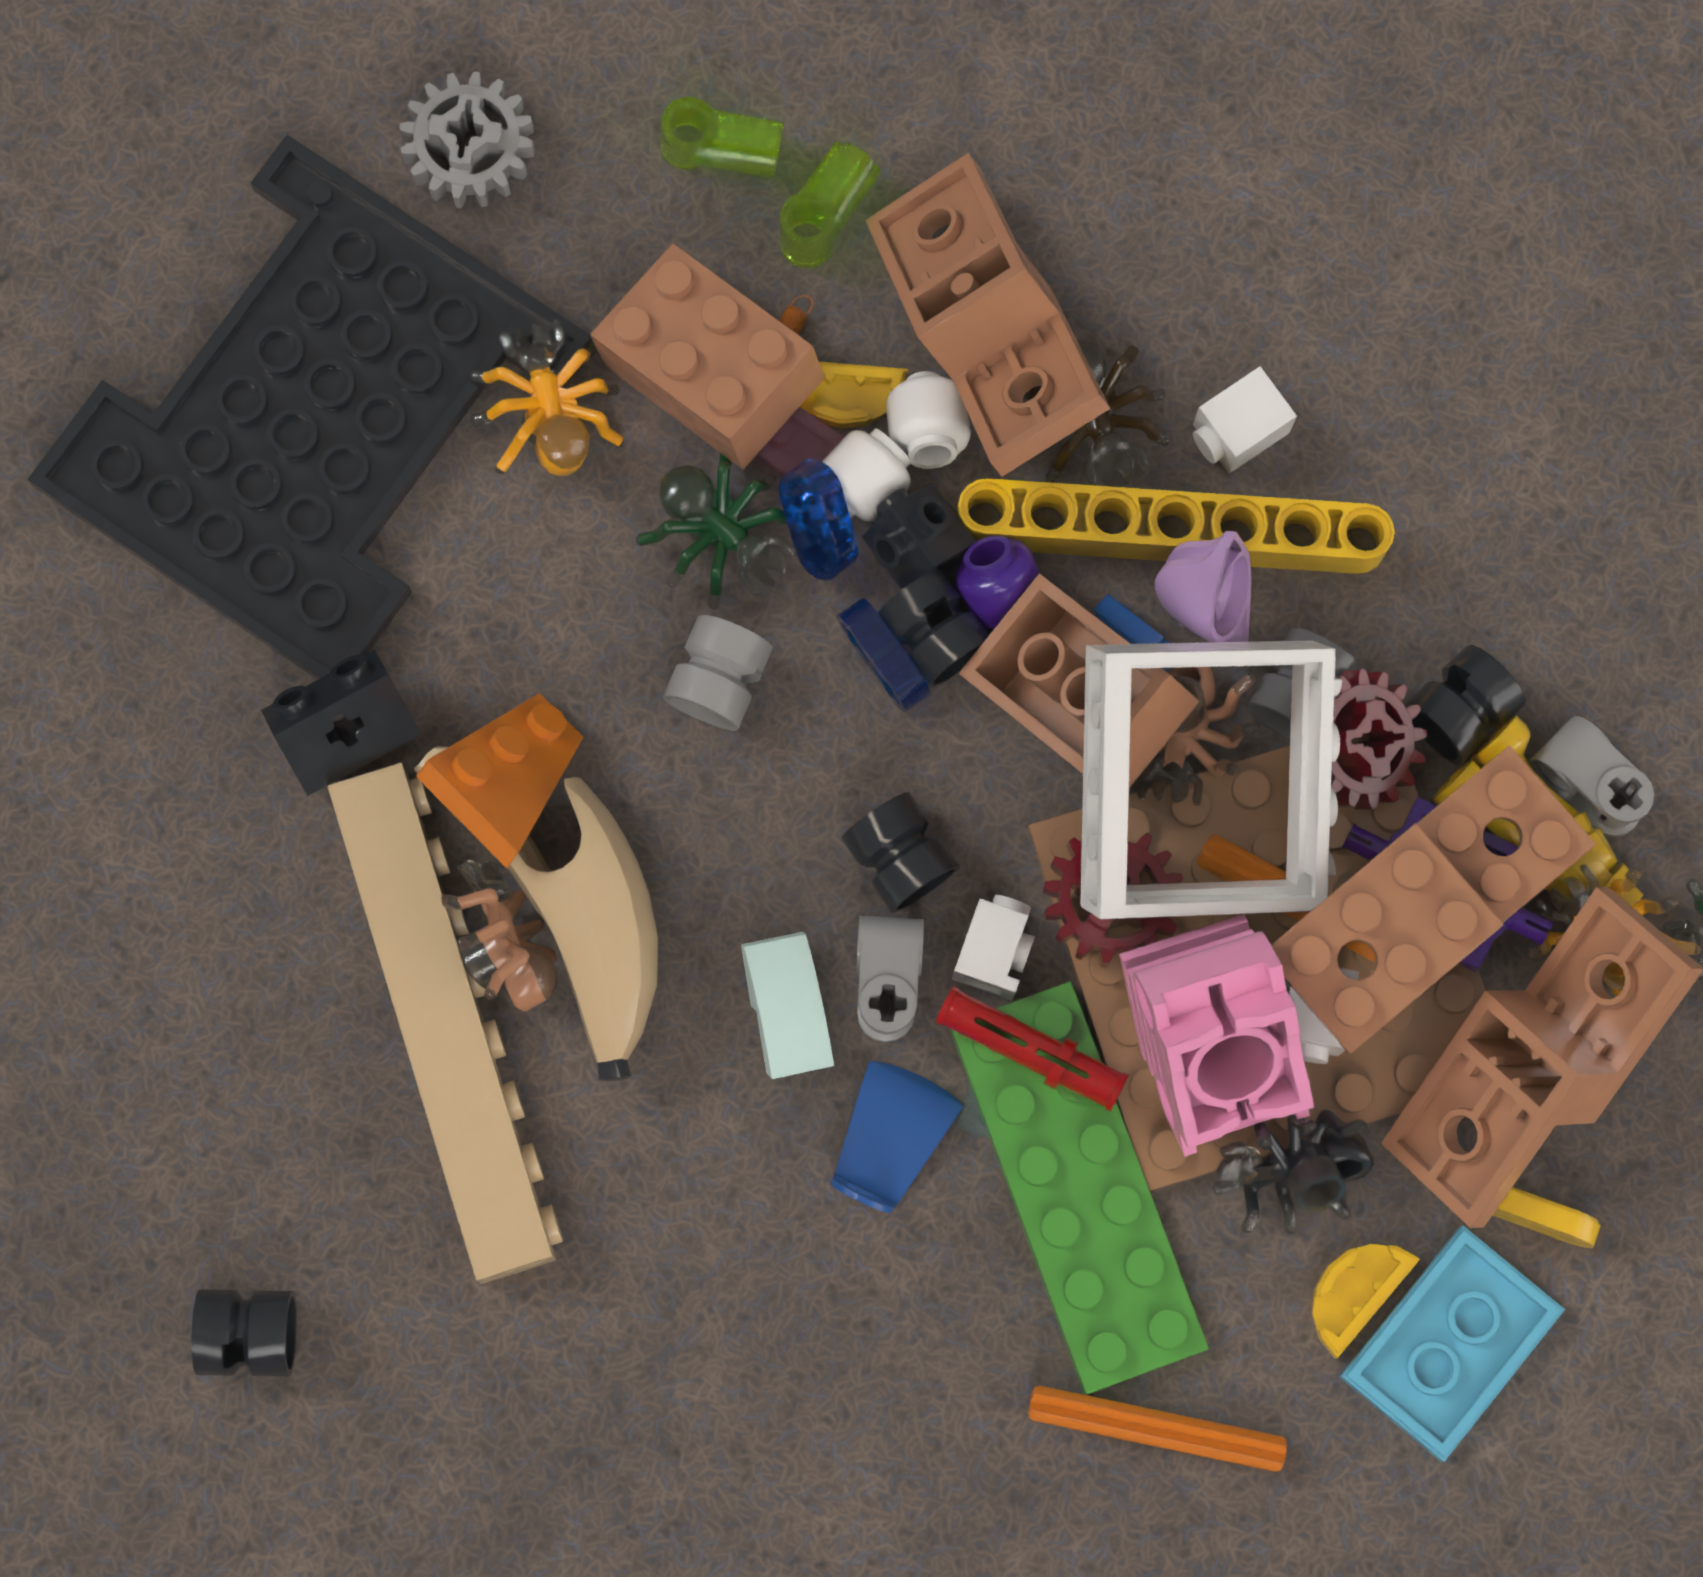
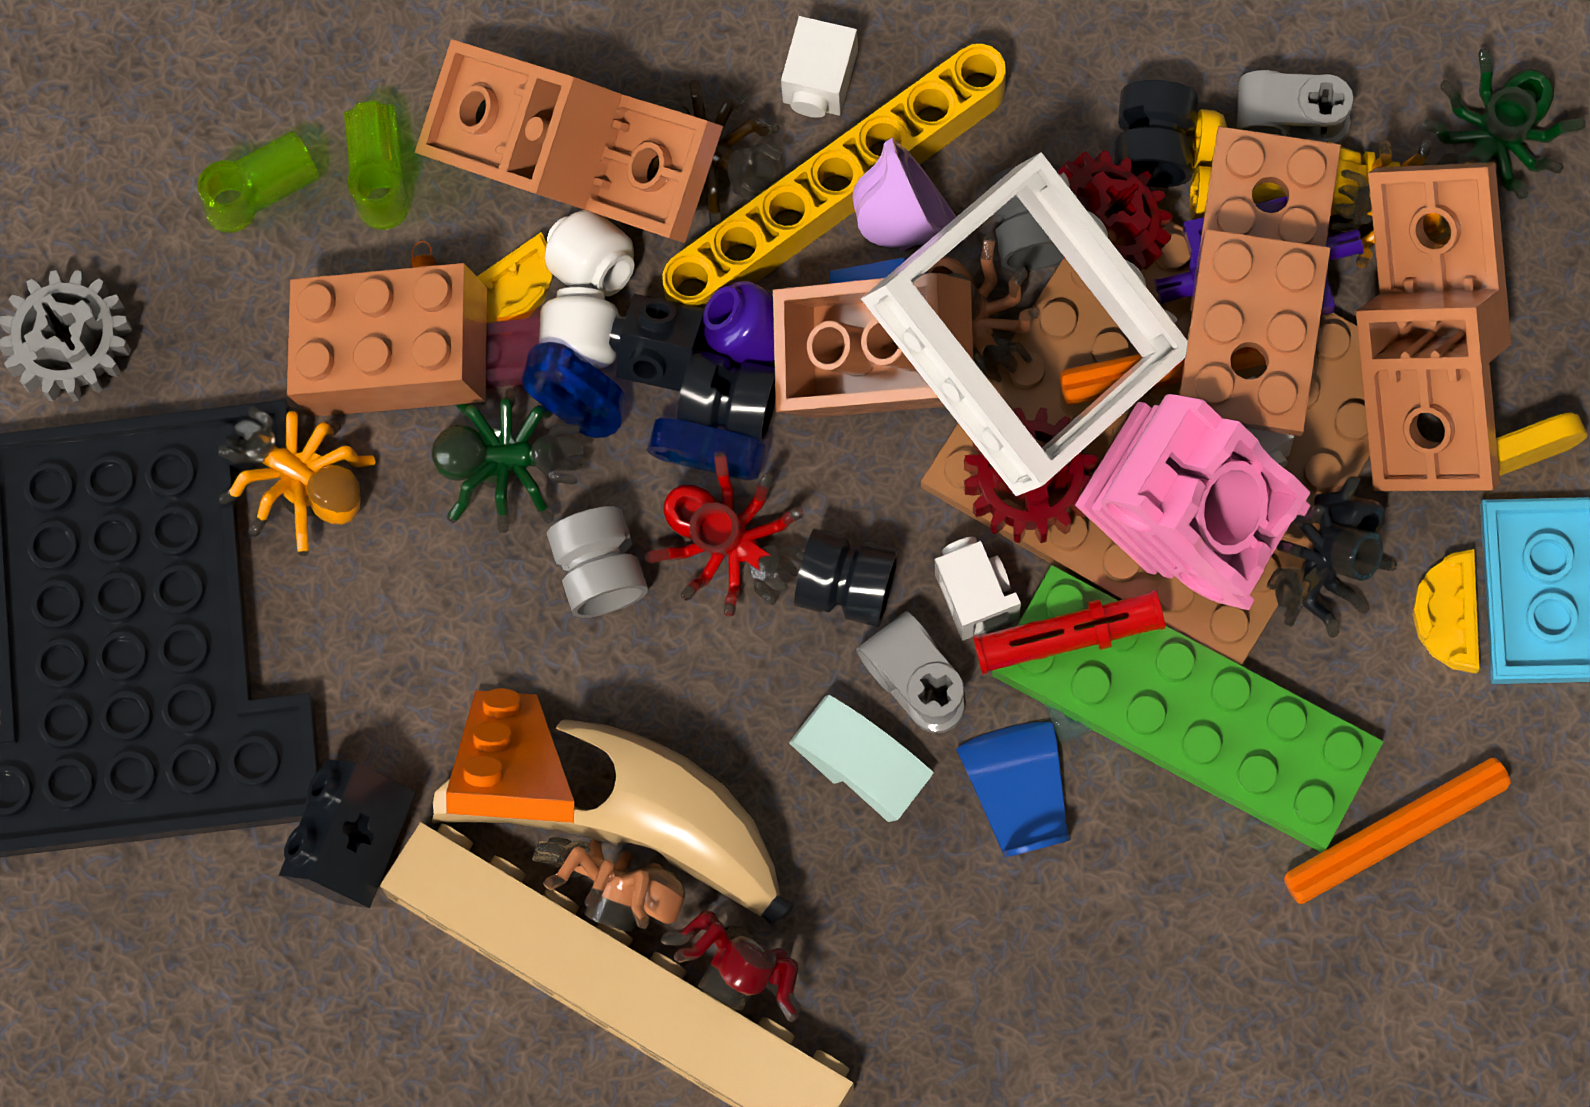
camera: 30 degrees left, 5 degrees down
(540, 1090) = (740, 964): none -> animal
(836, 731) = (722, 533): none -> animal

